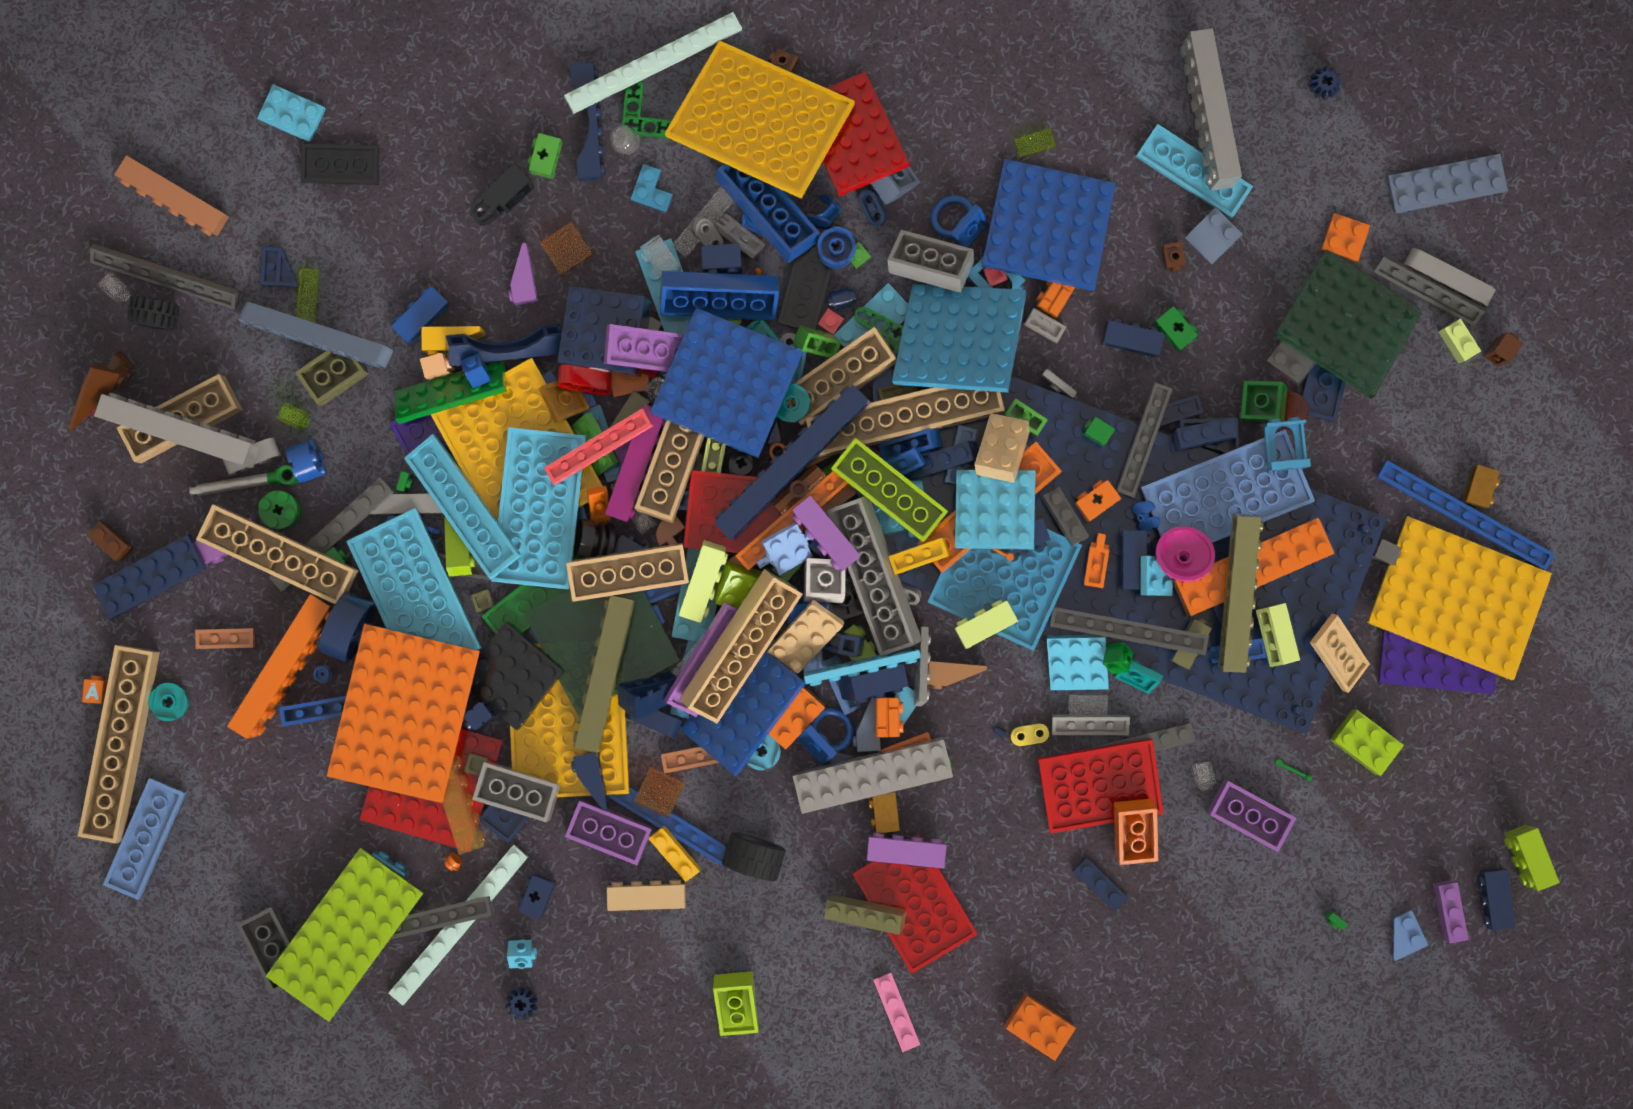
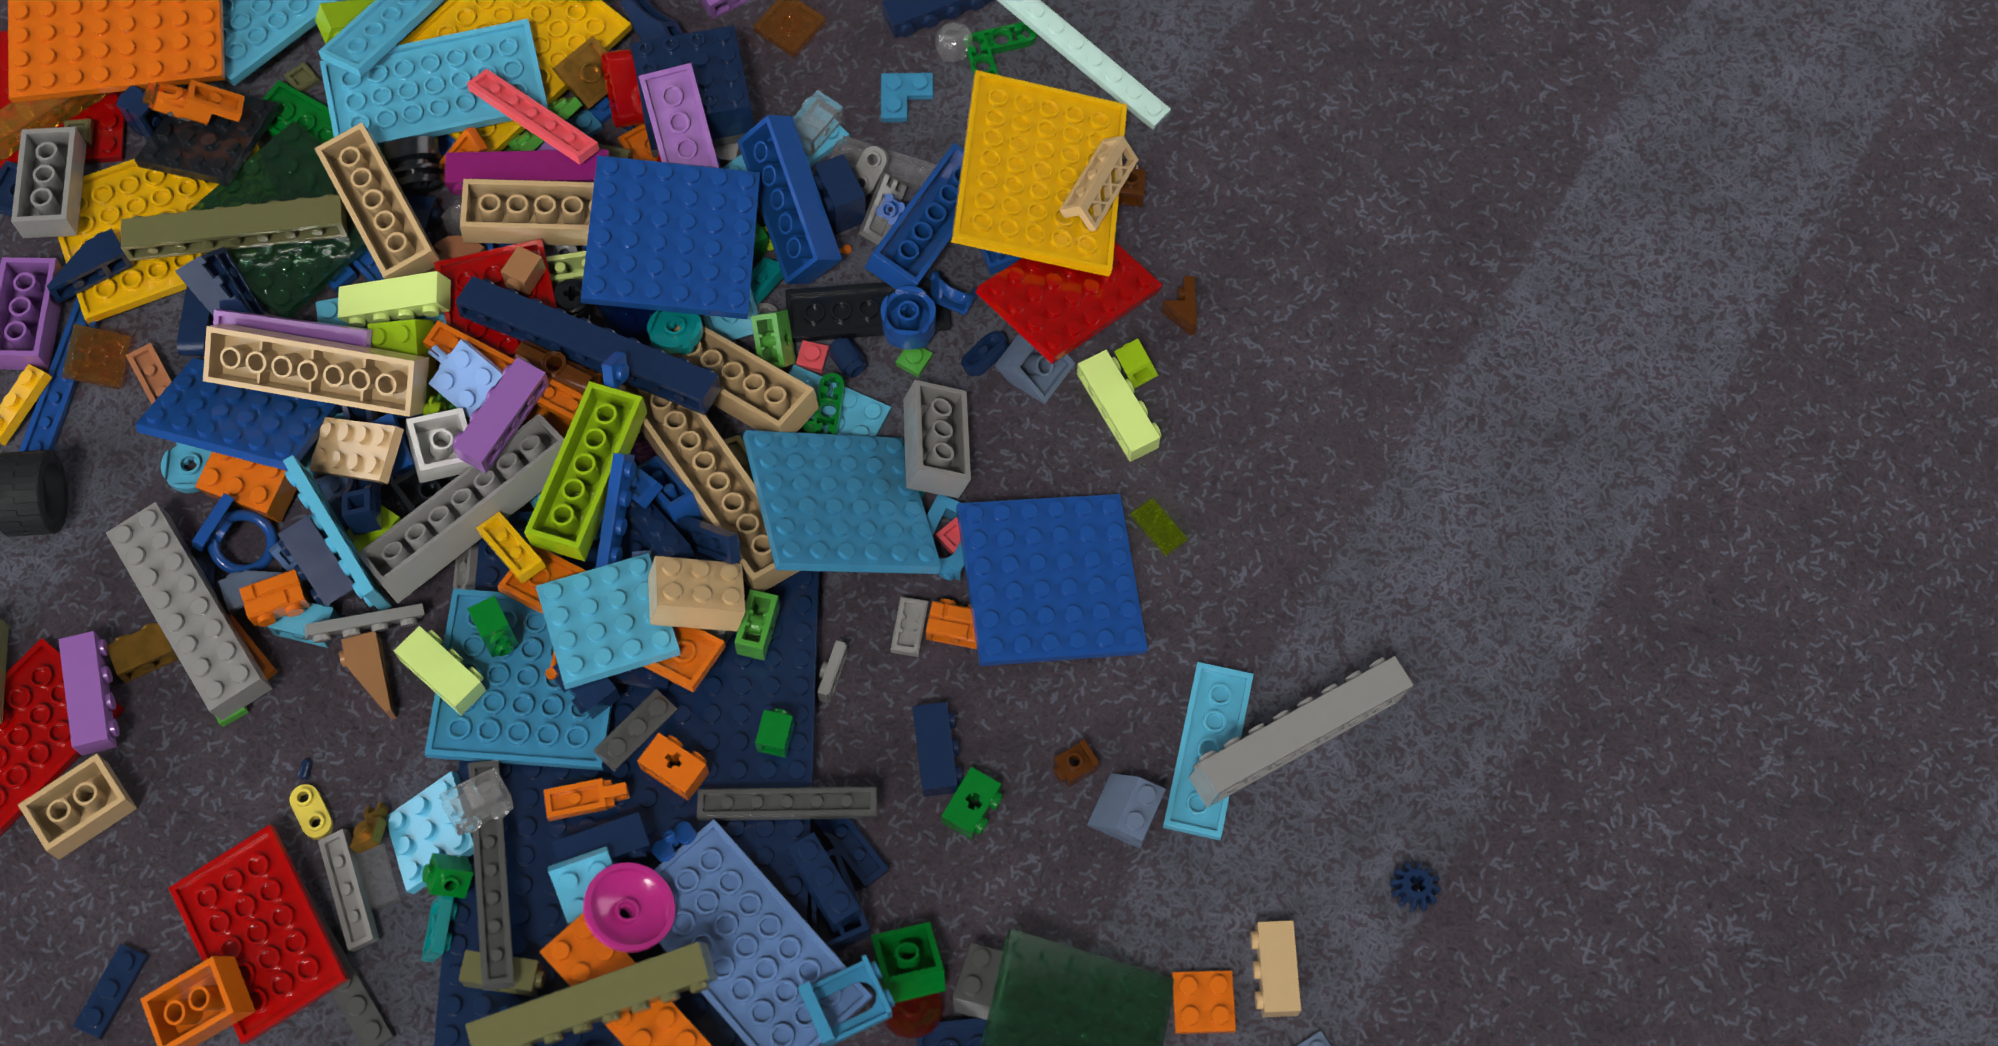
camera: 70 degrees right, 20 degrees down
(494, 675) = (194, 103): none -> orange plate
(717, 489) = (523, 270): none -> medium nougat brick
(743, 226) = (889, 201): none -> blue plate
(784, 83) = (1098, 175): none -> tan fence
(794, 578) = (434, 406): none -> lime plate
(829, 448) = (615, 370): none -> blue plate
(892, 63) = (1183, 309): none -> reddish brown slope
(917, 476) = (617, 501): none -> blue plate
(918, 111) = (1136, 363): none -> lime brick
(943, 135) = (1118, 405): none -> yellowish green brick
(965, 428) = (710, 539): none -> dark blue plate
(968, 227) = (1004, 474): blue tile -> none
(974, 581) = (493, 627): none -> green brick
(978, 876) = (77, 806): none -> tan brick
(1059, 700) = (370, 831): none -> pearl gold plate
(1084, 626) = (476, 801): none -> clear brick
(1344, 186) = (1276, 969): none -> tan brick

